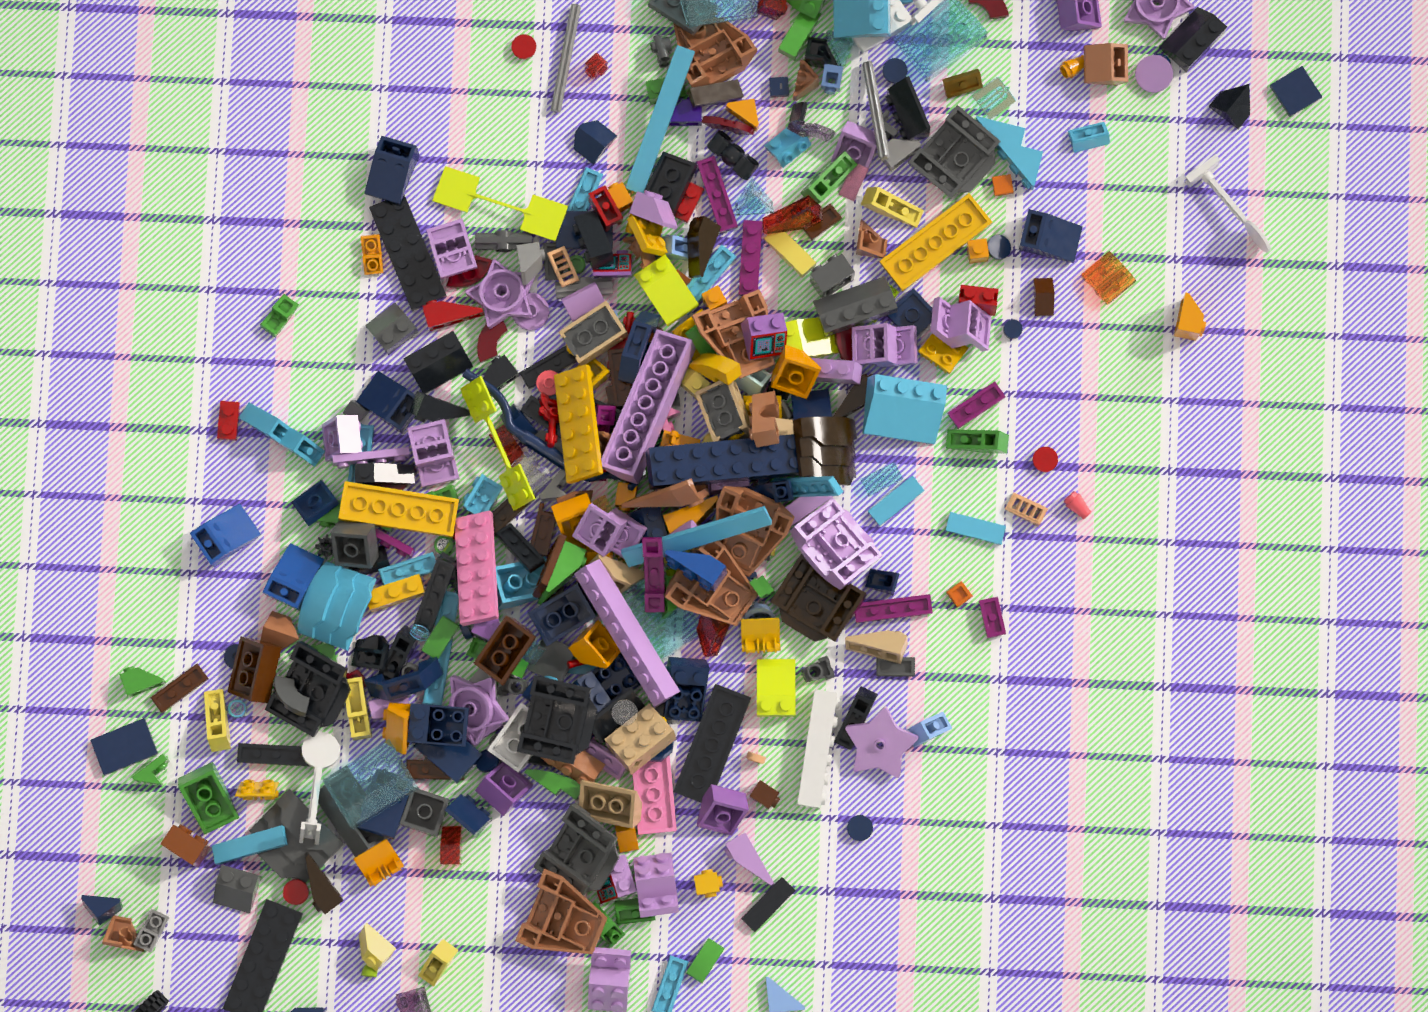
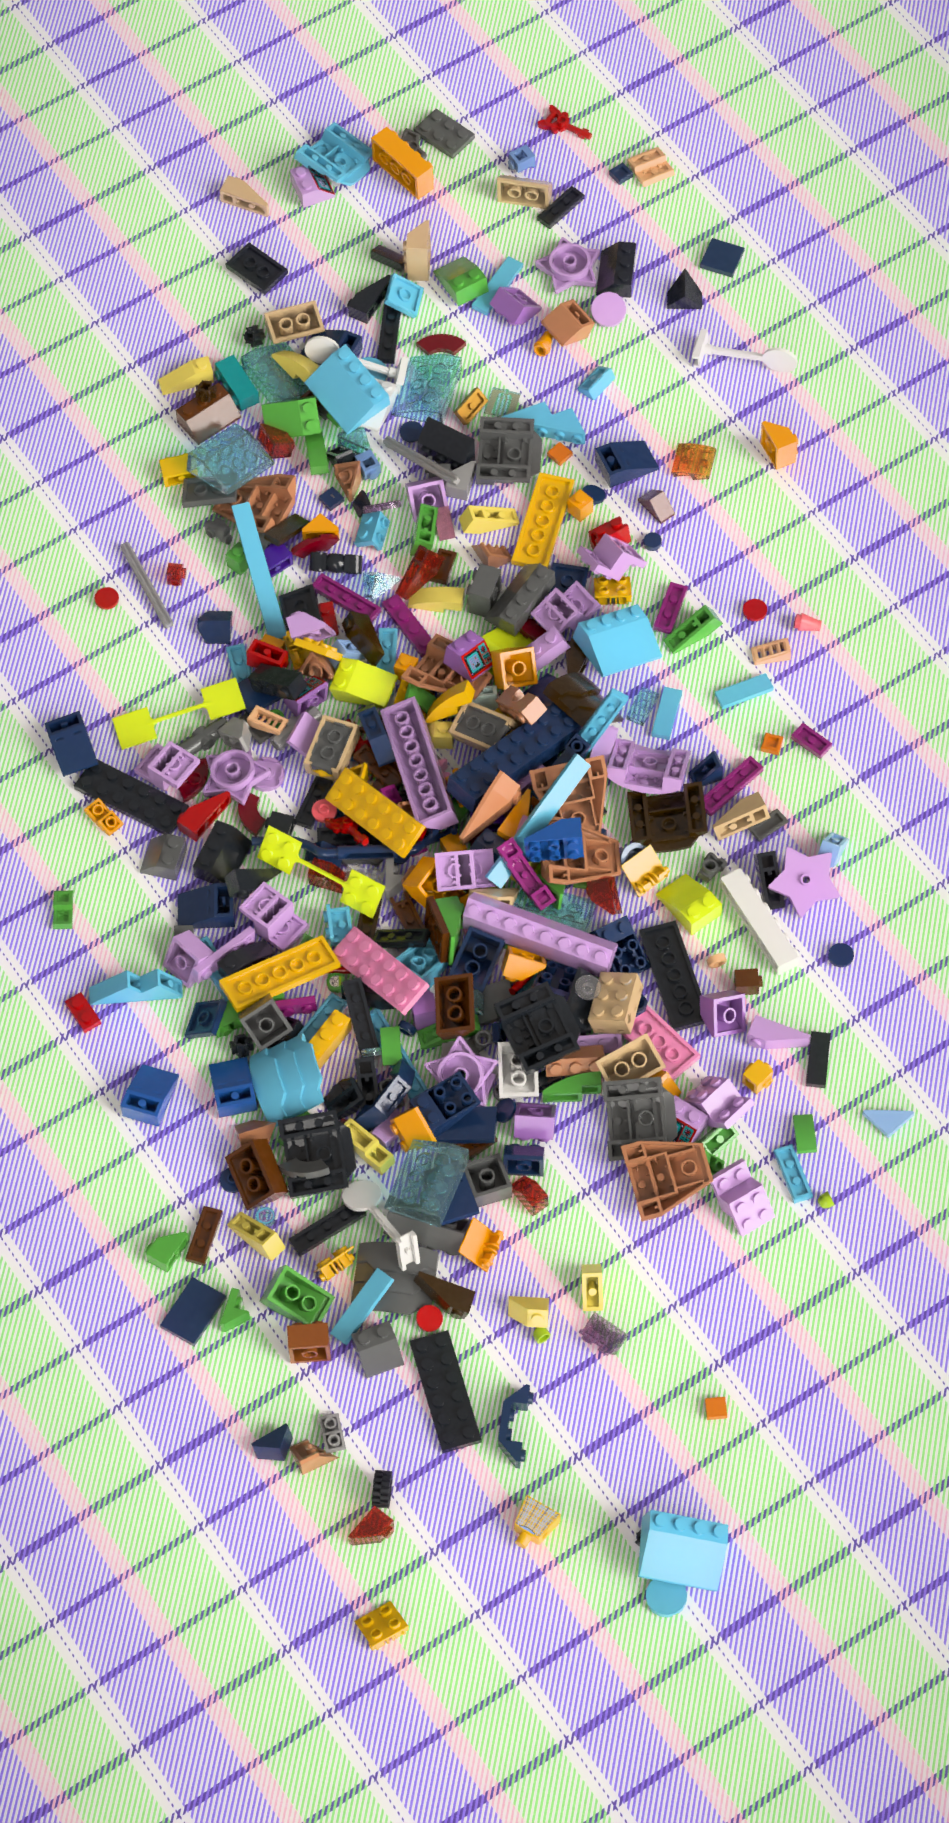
camera: 40 degrees left, 20 degrees down
(762, 587) = (617, 833): bright green slope -> none

